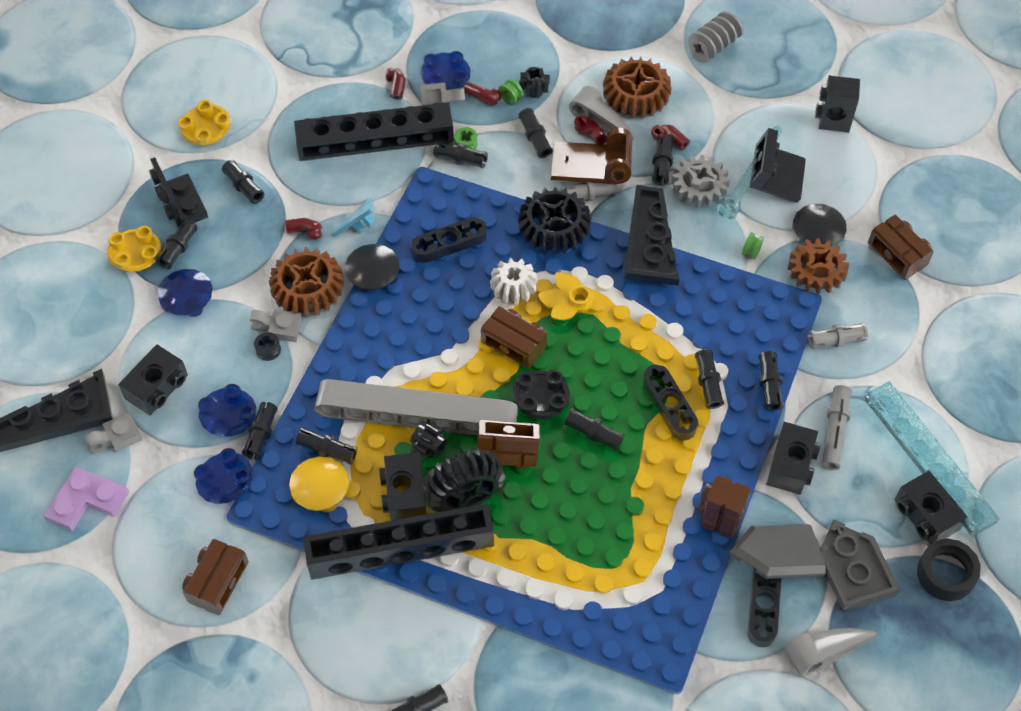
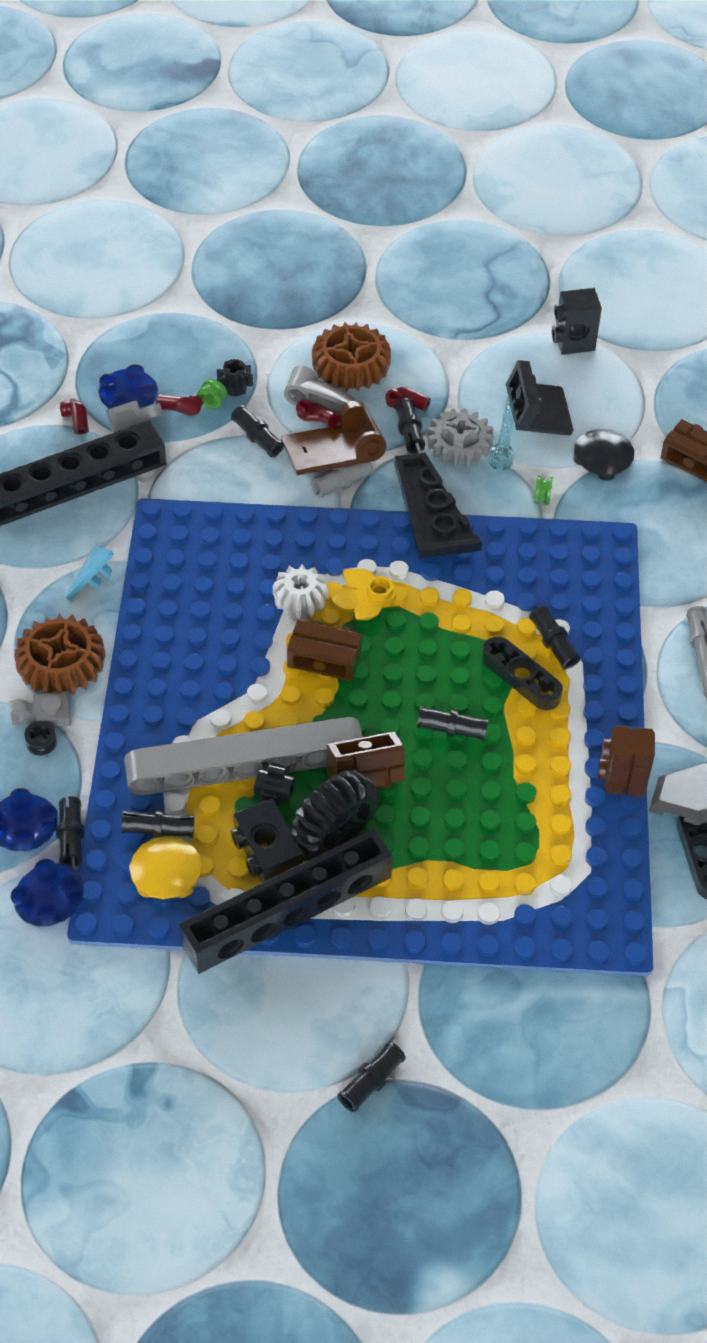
camera: 20 degrees left, 5 degrees down
(215, 576) = (83, 1004): reddish brown brick -> none
(304, 224) = (31, 594): dark red arm -> none
(372, 267) = (131, 619): black dish -> none
(428, 239) = (201, 579): black beam -> none
(460, 154) = (181, 474): black pin -> none
(468, 133) = (180, 450): bright green bush -> none
(541, 393) = (378, 702): black dish -> none
(556, 228) = (319, 516): black gear -> none
(715, 36) = (415, 283): light grey piece -> none
(770, 381) = (620, 622): black pin -> none
(792, 474) = (674, 696): black brick -> none
(818, 266) = (620, 493): dark orange gear -> none
(837, 335) = (669, 559): light grey pin -> none

